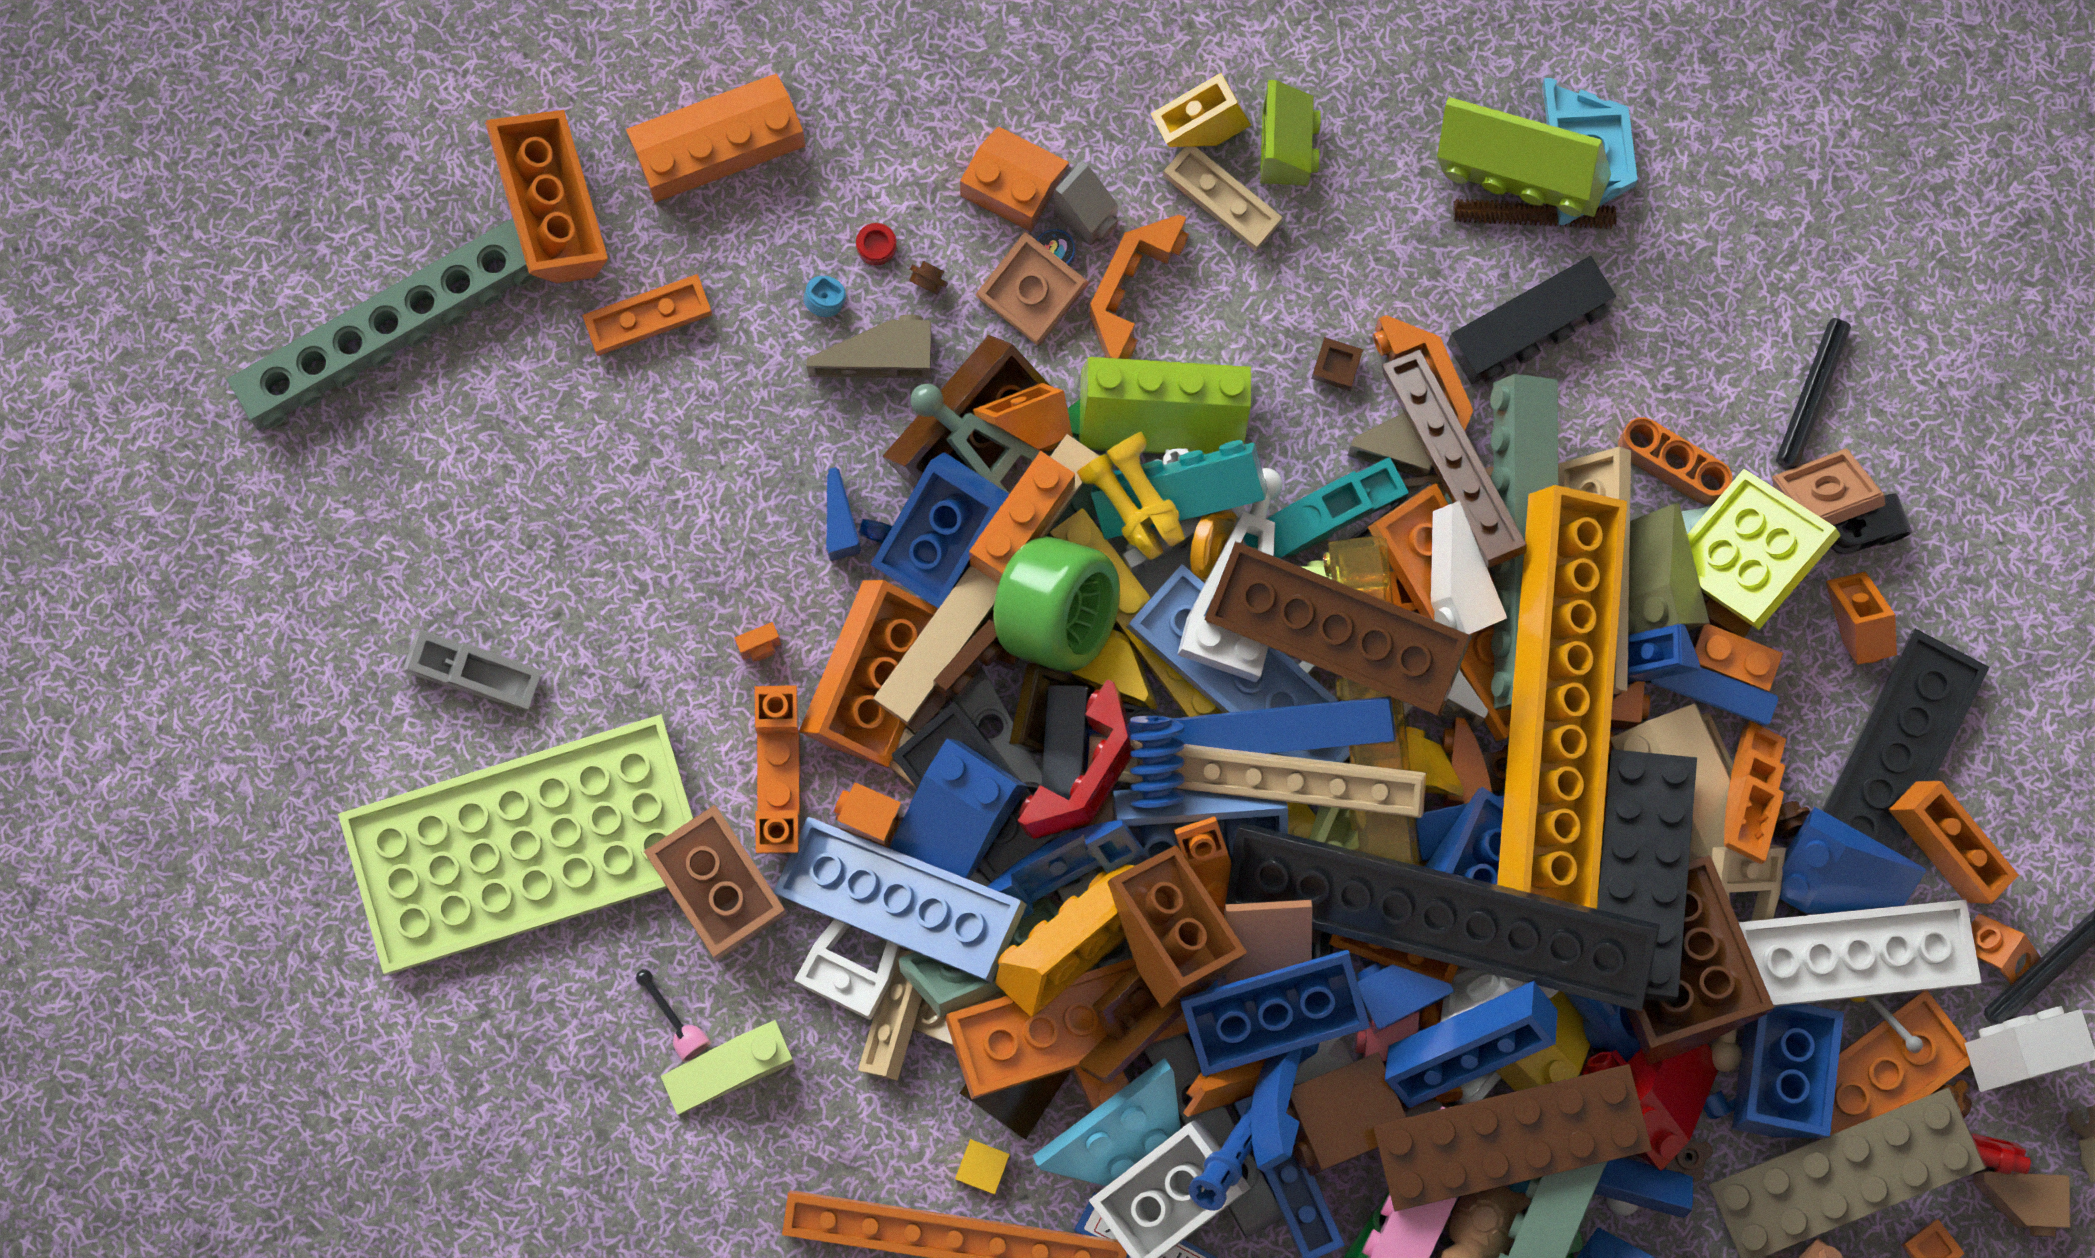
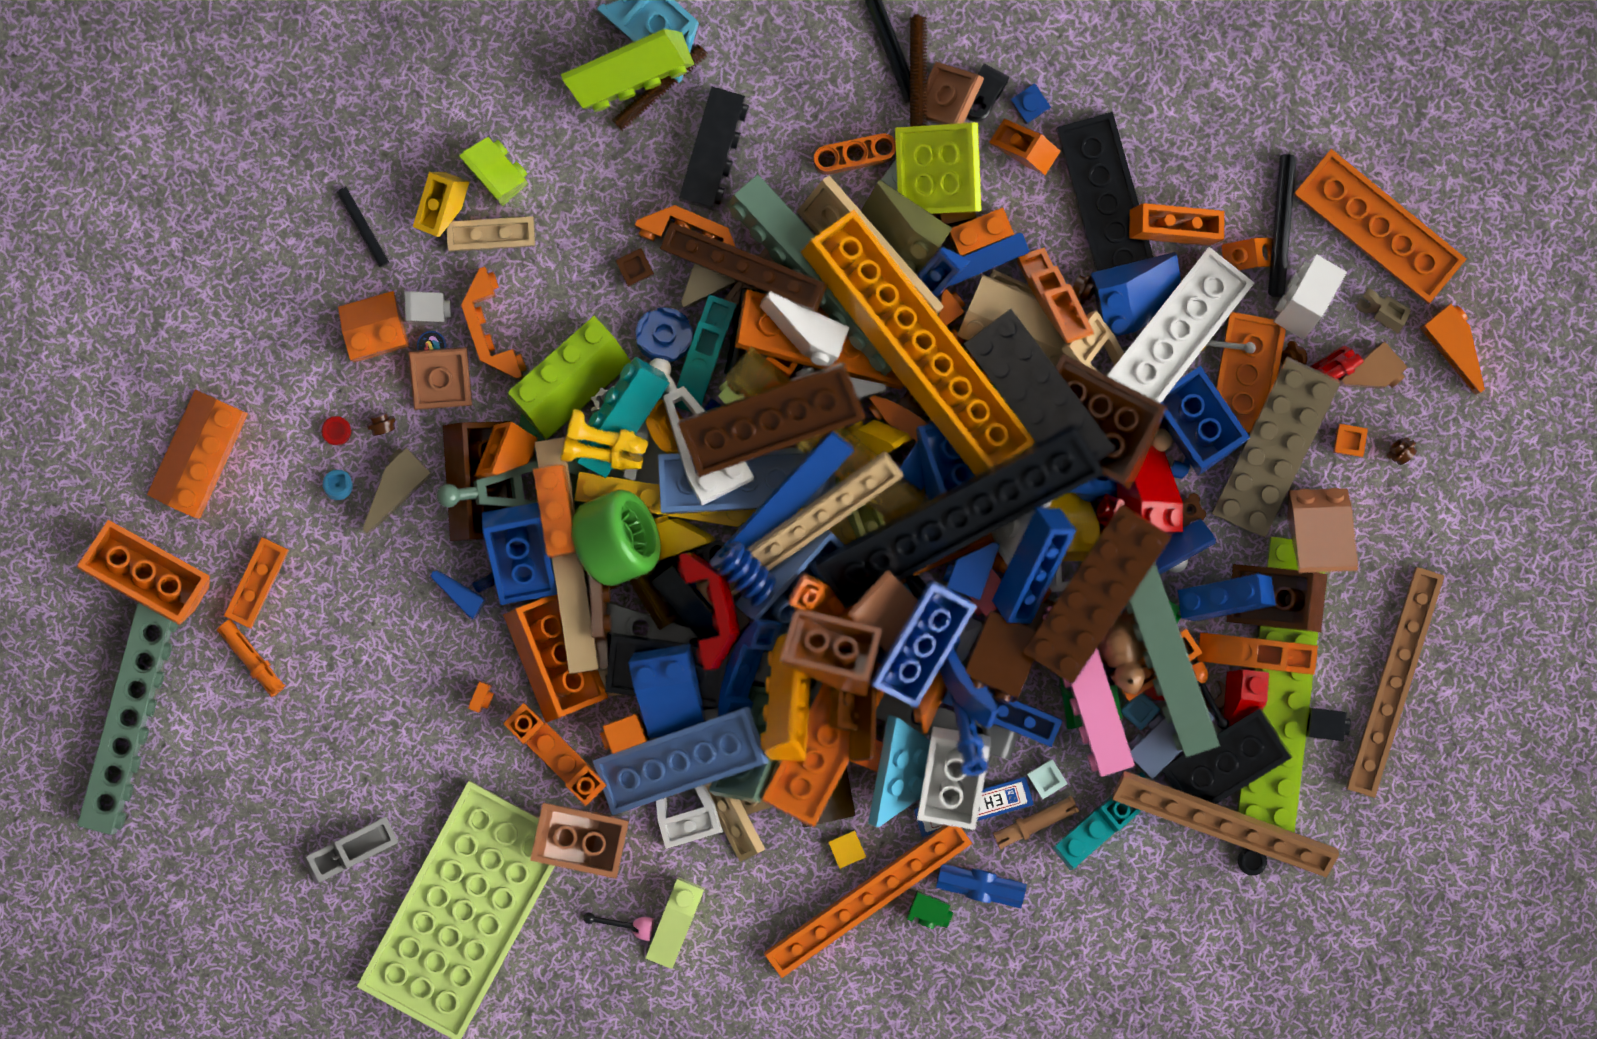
camera: 40 degrees left, 10 degrees up
(564, 399) = (249, 656): none -> orange pin
(1099, 73) = (362, 227): none -> black bar
(1302, 455) = (664, 334): none -> blue tile
(1822, 436) = (916, 70): none -> reddish brown axle
(1907, 581) = (1030, 103): none -> blue plate

